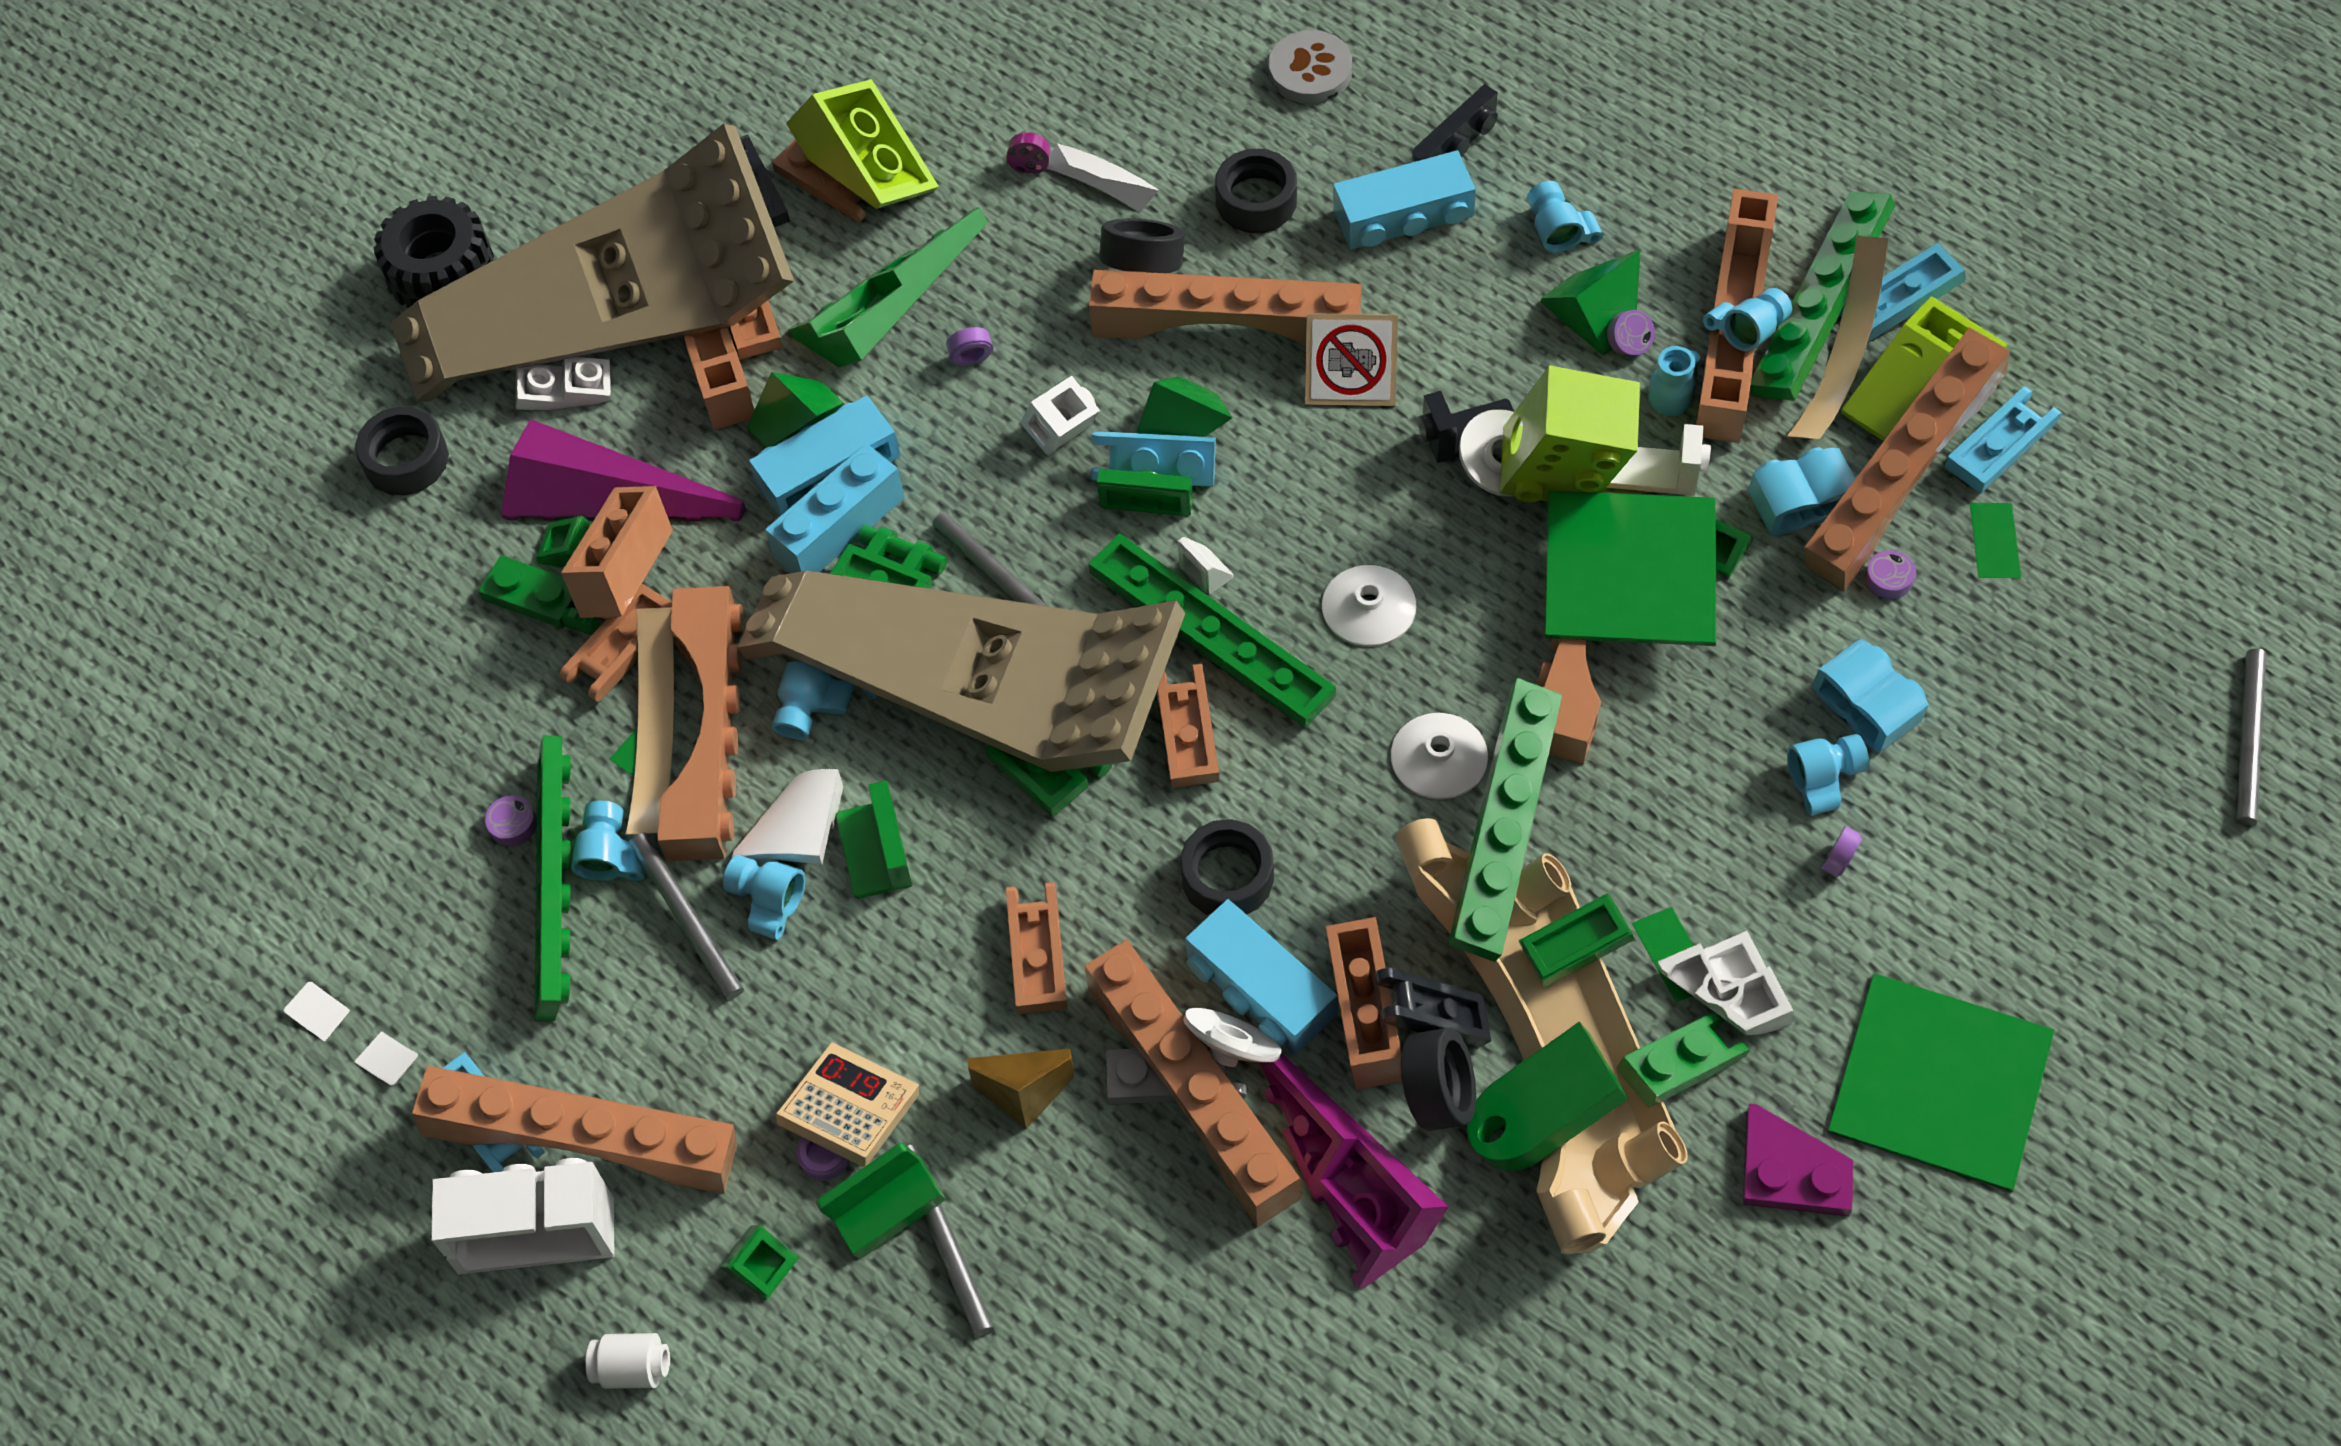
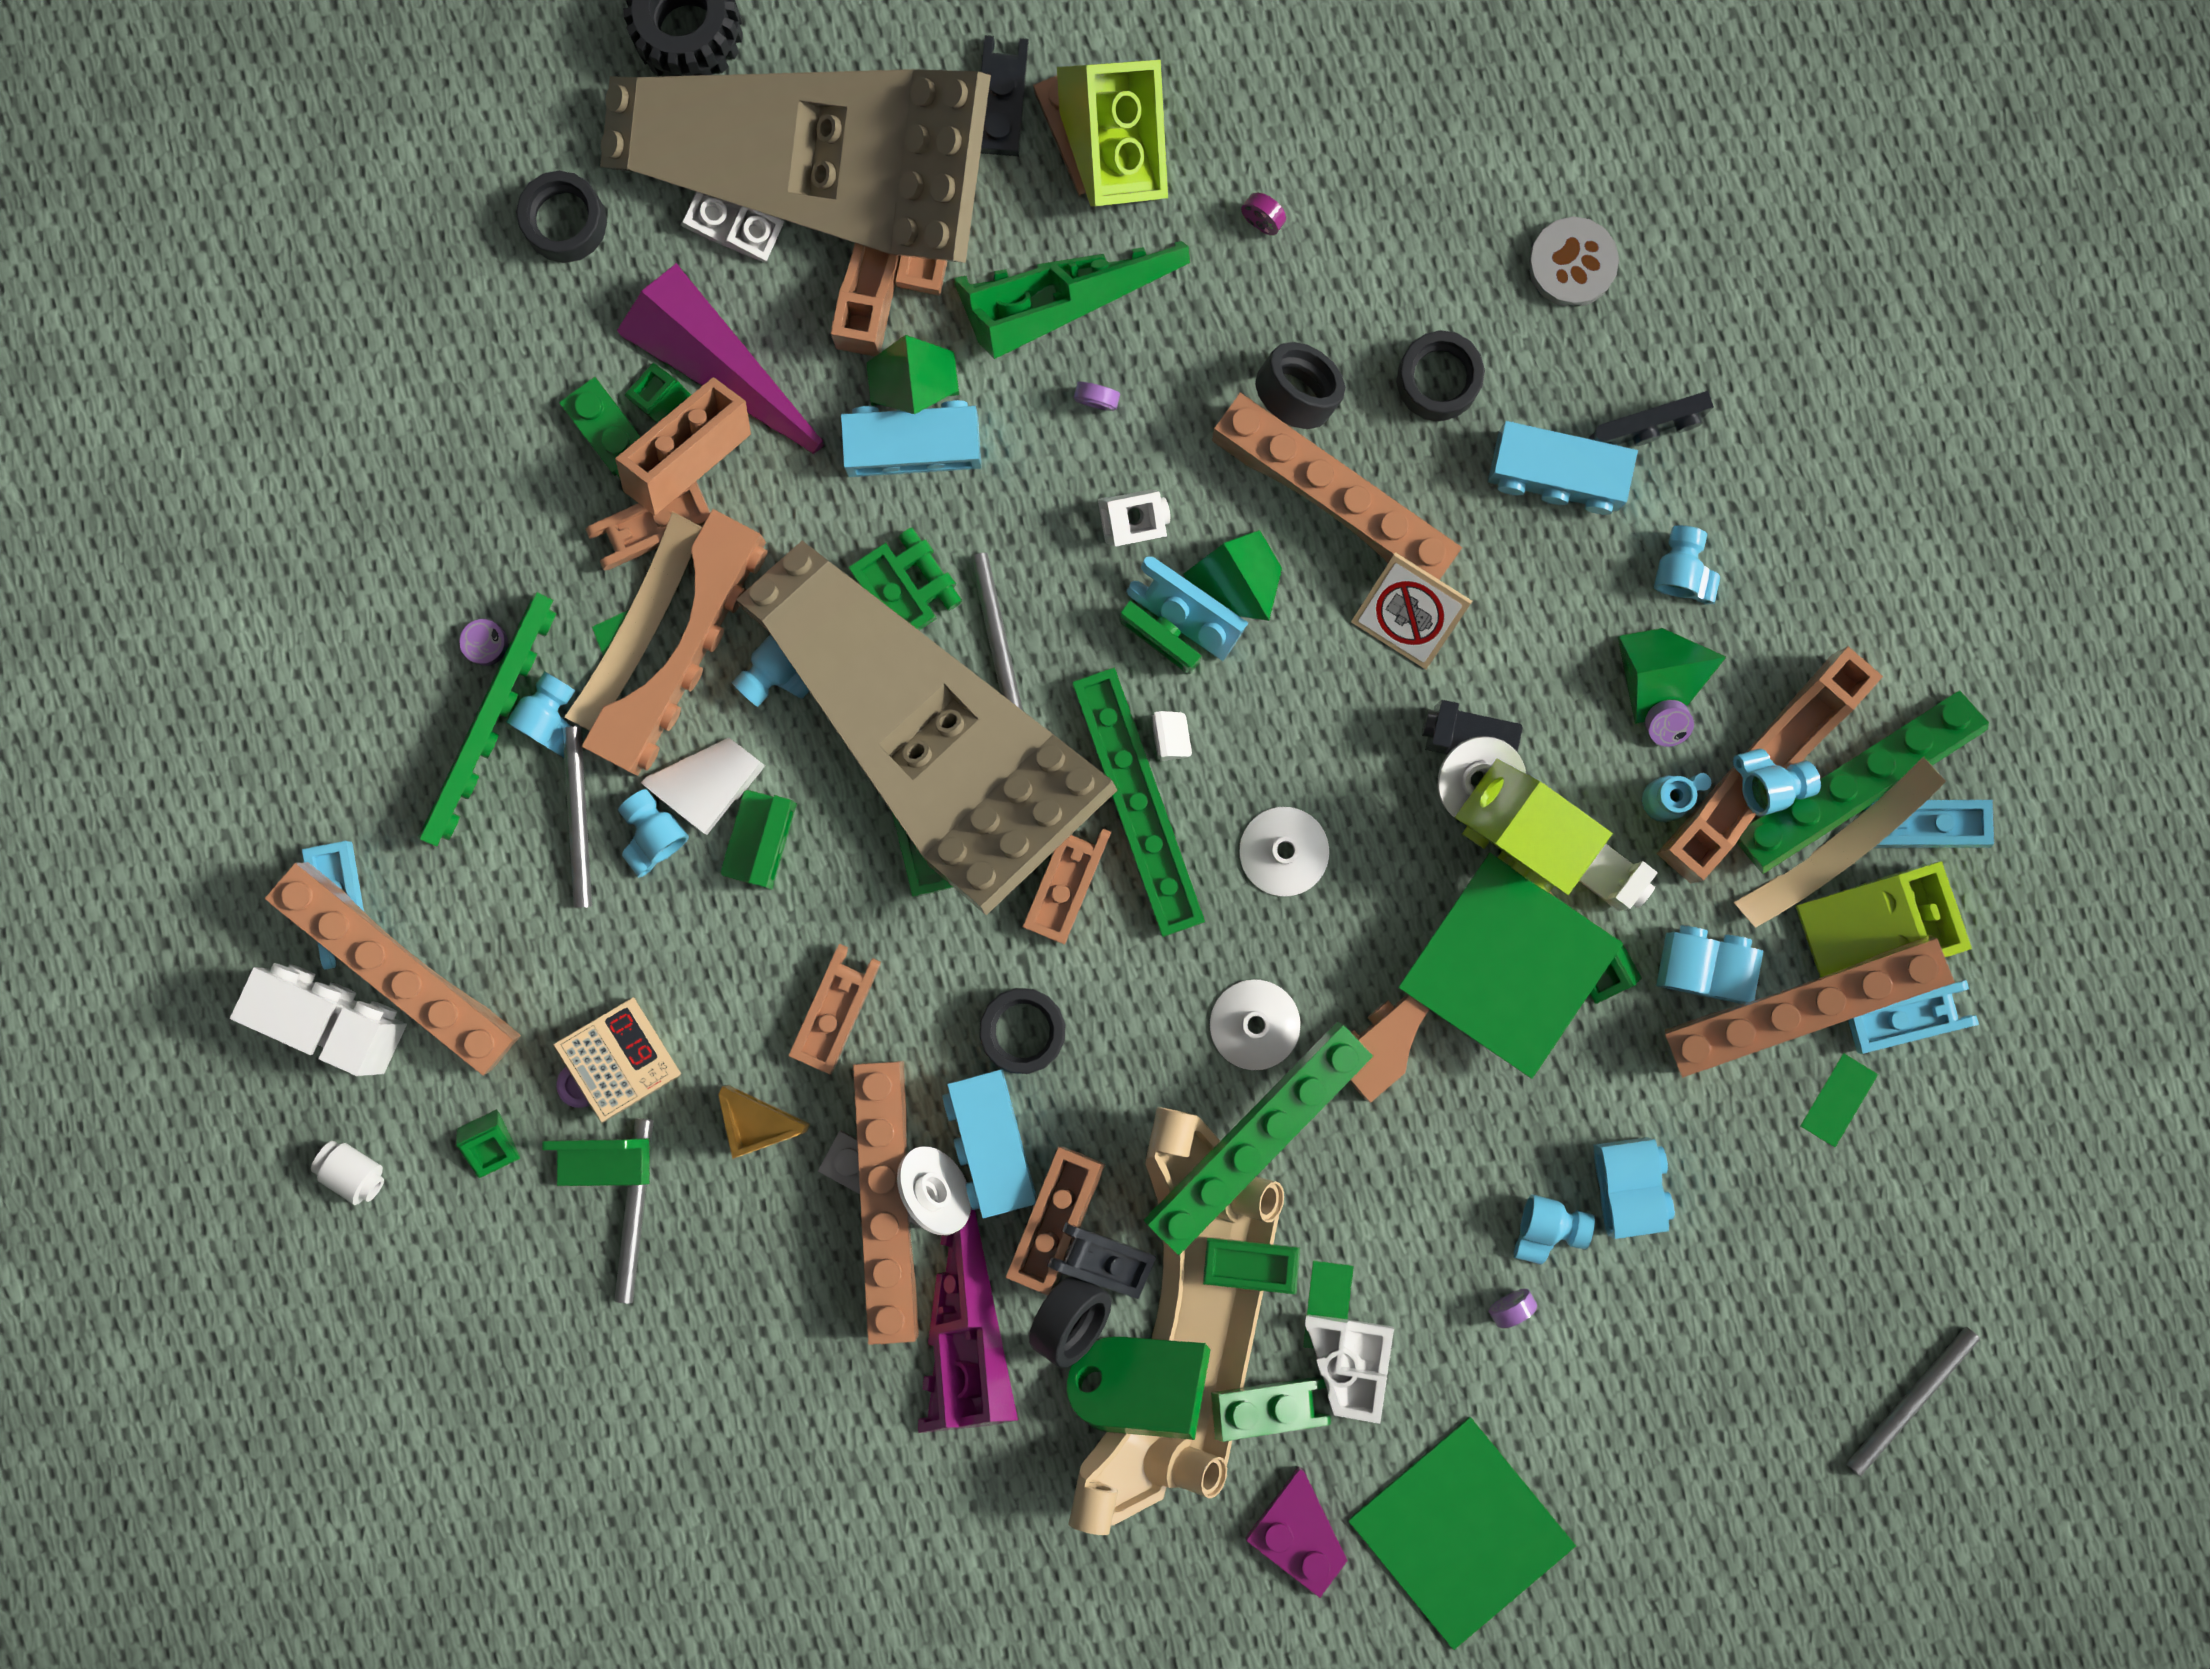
camera: 25 degrees right, 25 degrees up
(321, 1016) = (258, 733): white sticker -> none
(835, 511) = (889, 505): medium azure brick -> none
(1102, 176) = (1316, 272): sticker -> none
(1890, 574) = (1728, 1084): medium lavender tile -> none

